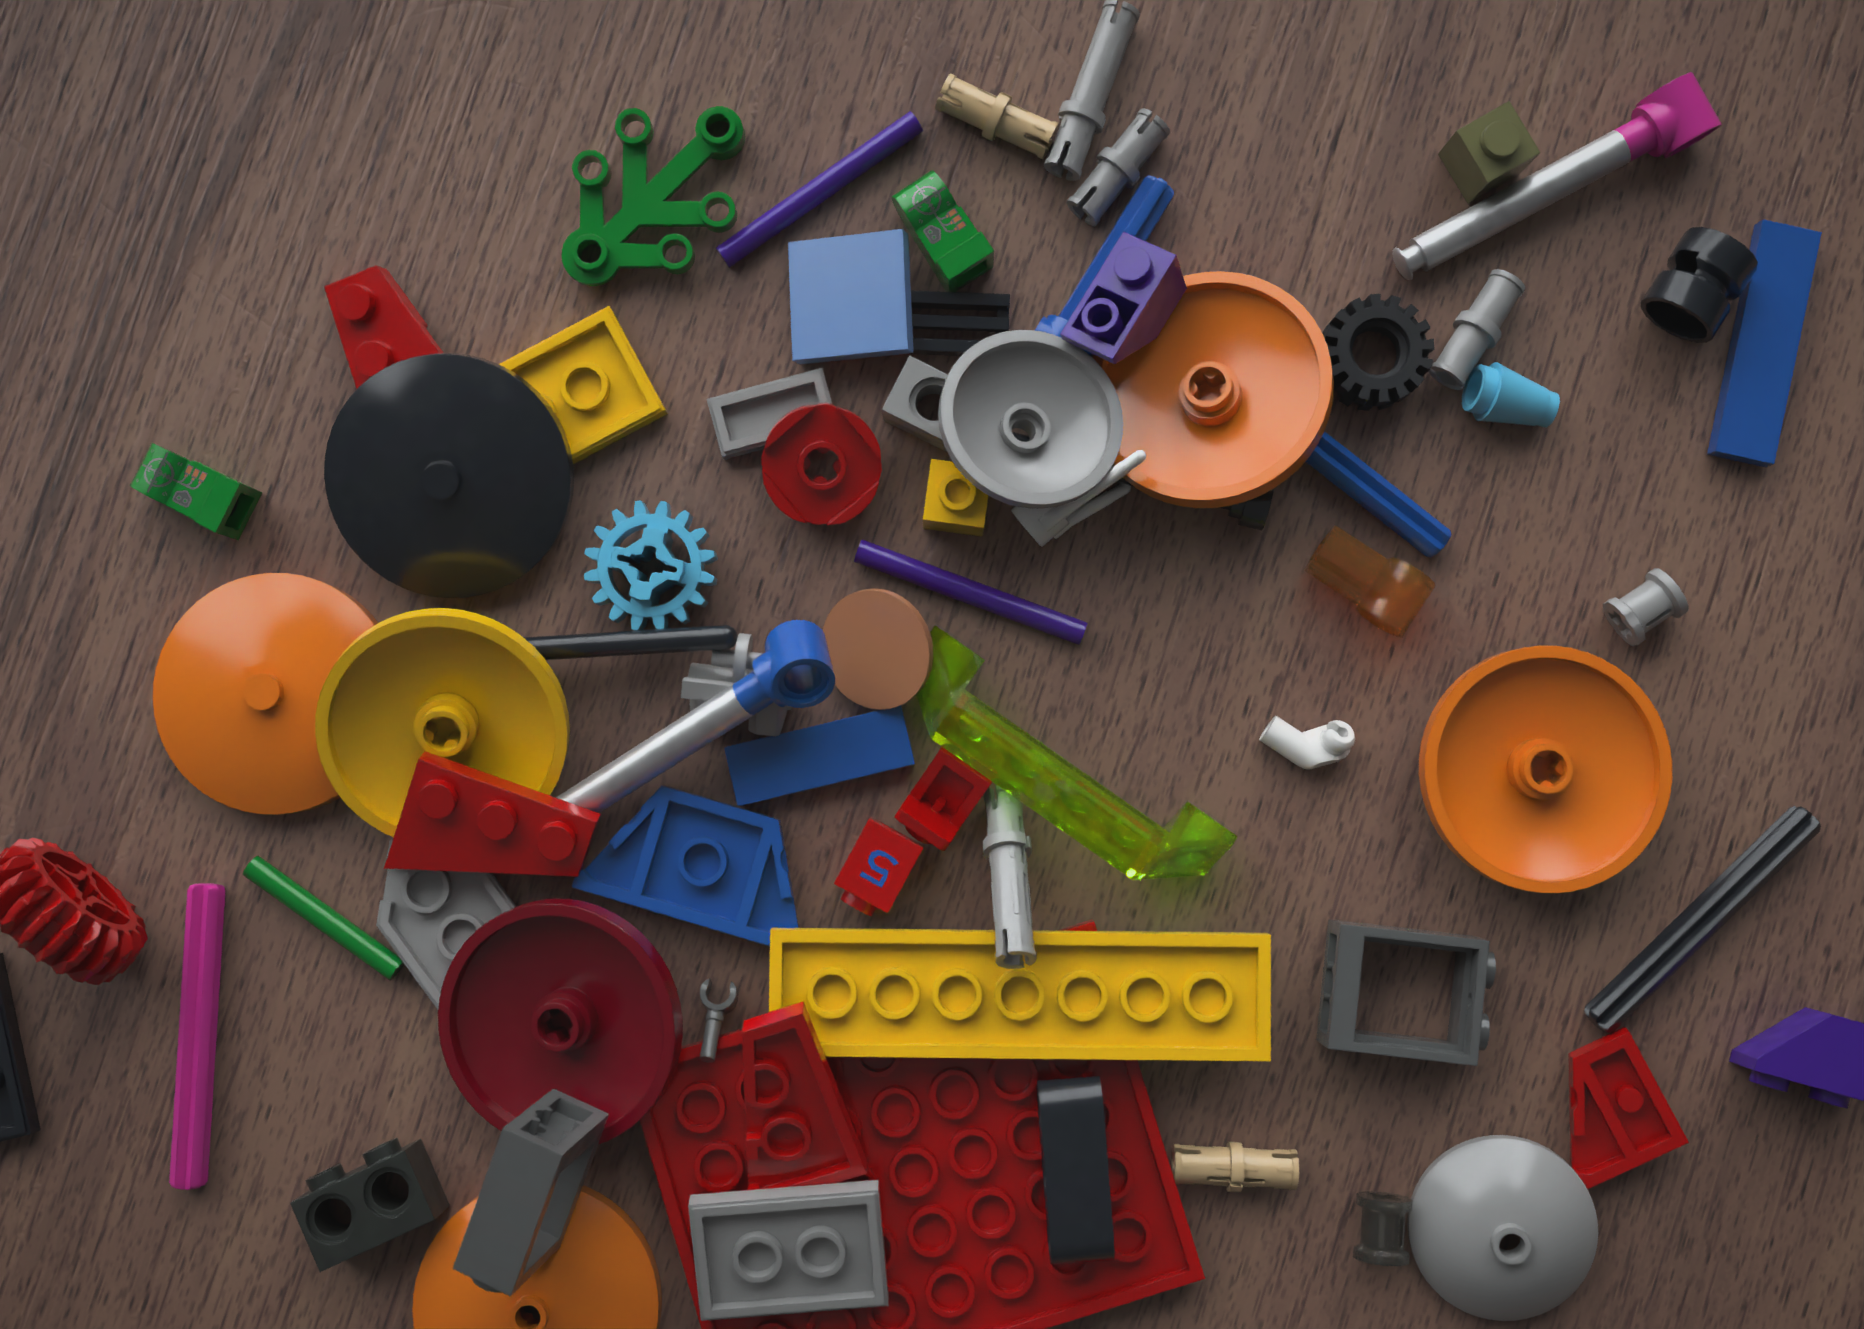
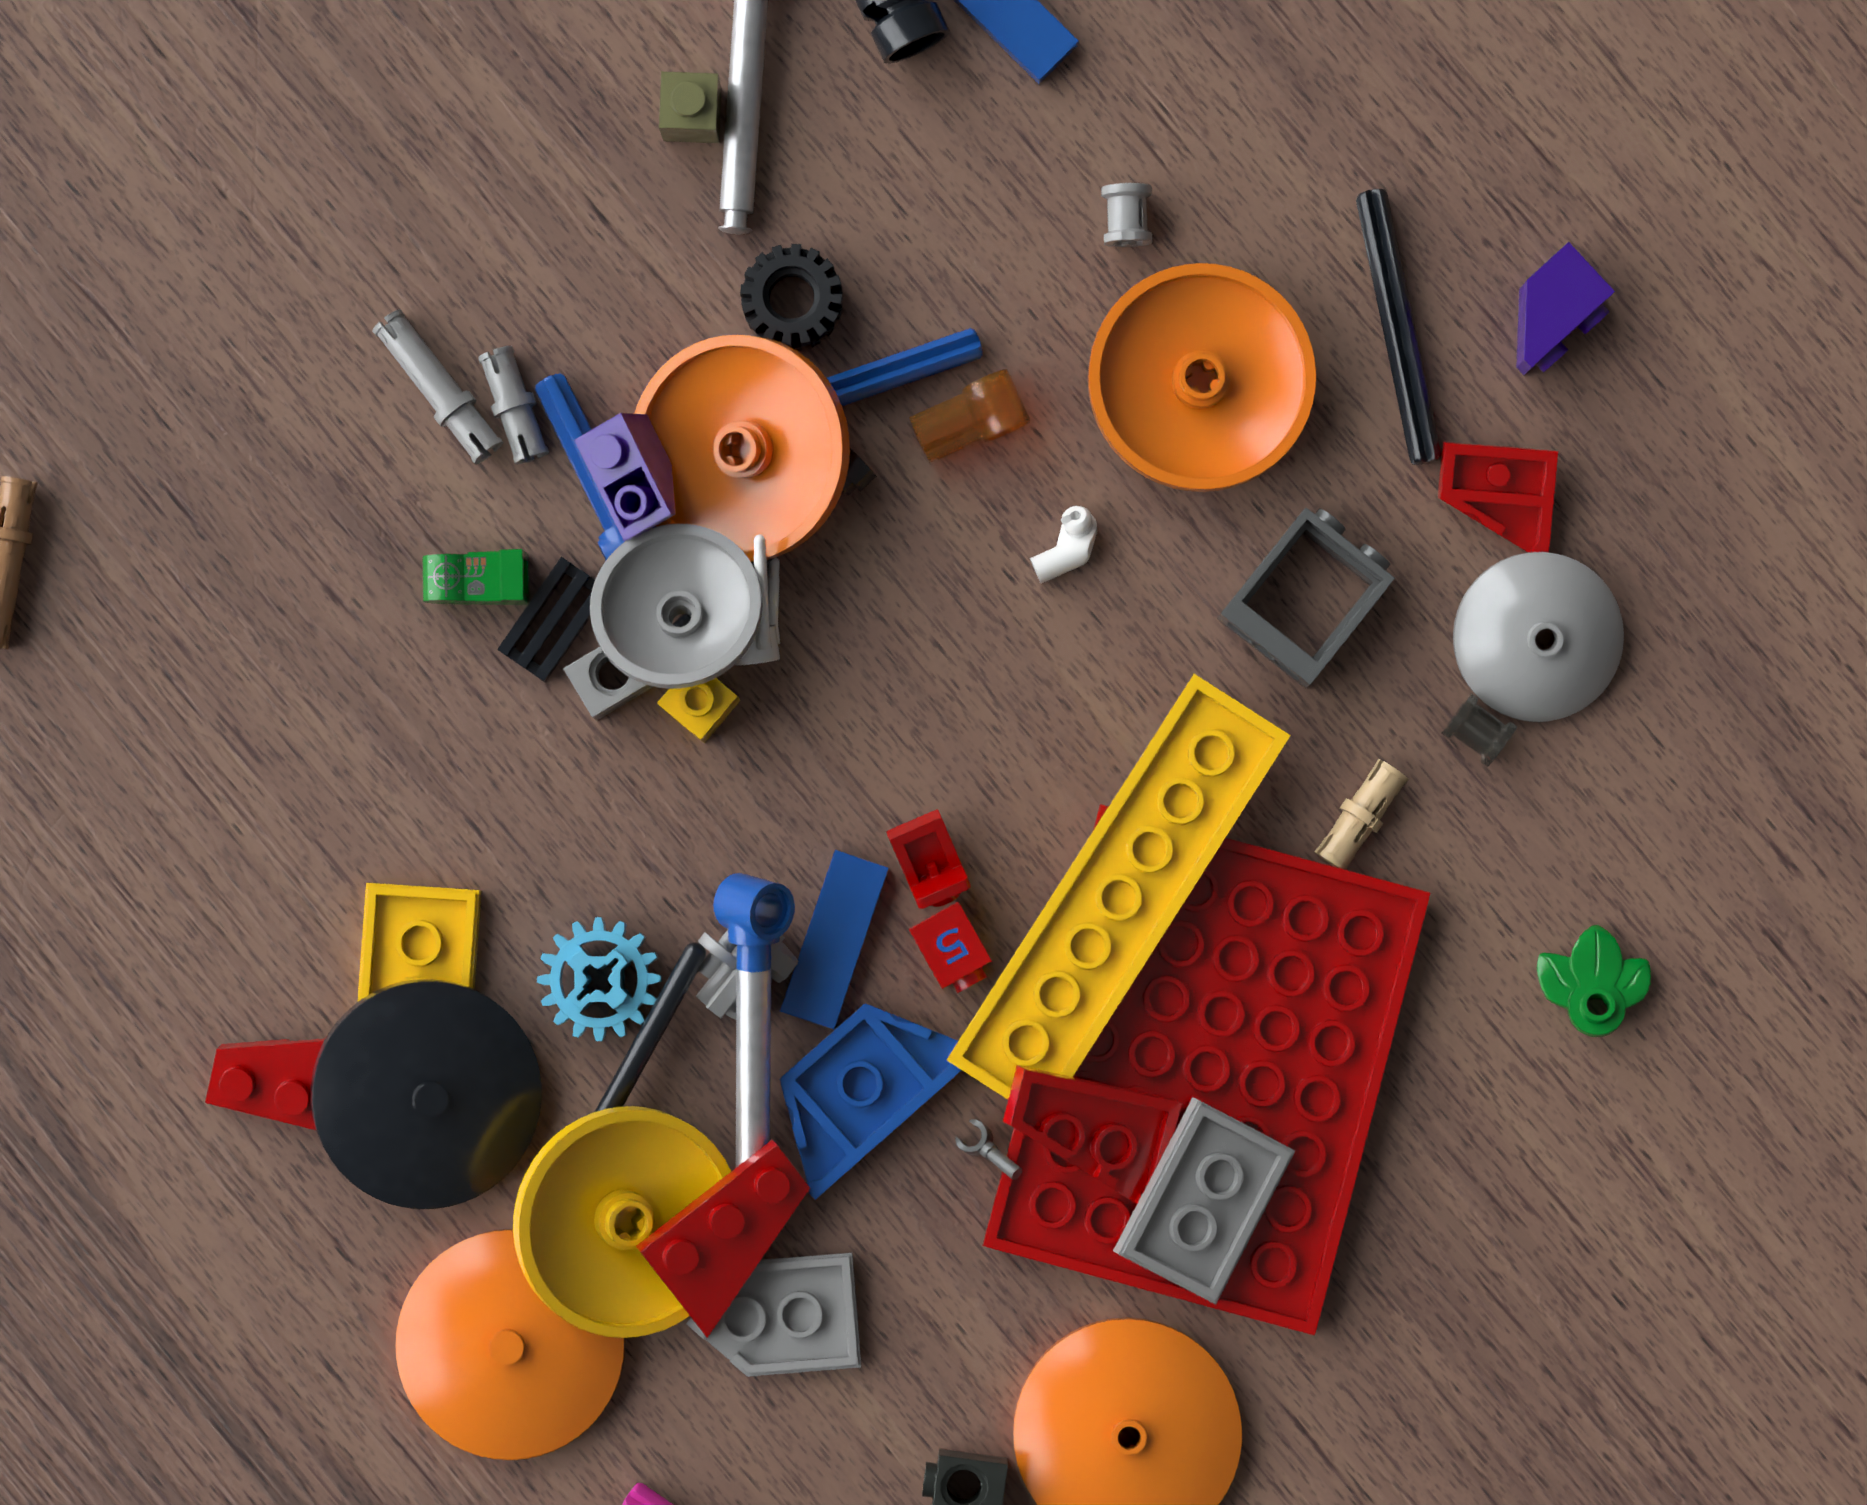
camera: 60 degrees left, 0 degrees up
(196, 491) = (305, 1307): green leg -> none
(323, 917) = (714, 1416): green bar -> none
(530, 1192) = (1031, 1365): dark grey window -> none
(561, 1004) = (916, 1271): dark red dish -> none
(647, 203) = (301, 801): green plant -> none
(748, 415) = (536, 805): light grey tile -> none
(819, 189) = (377, 654): dark purple bar -> none
(819, 499) = (629, 813): red plate -> none
(850, 297) = (483, 685): medium blue tile -> none
(878, 648) = (779, 838): nougat piece -> none
(970, 592) = (779, 738): dark purple bar -> none
(996, 116) = (410, 475): tan pin -> none
(1008, 854) = (1004, 838): light grey pin -> none
(1056, 787) = (969, 770): clear neon green slope -> none
(1075, 1170) = (1280, 939): black beam -> none
(1477, 329) = (824, 204): light grey pin -> none
(1507, 397) = (894, 215): medium azure cone -> none

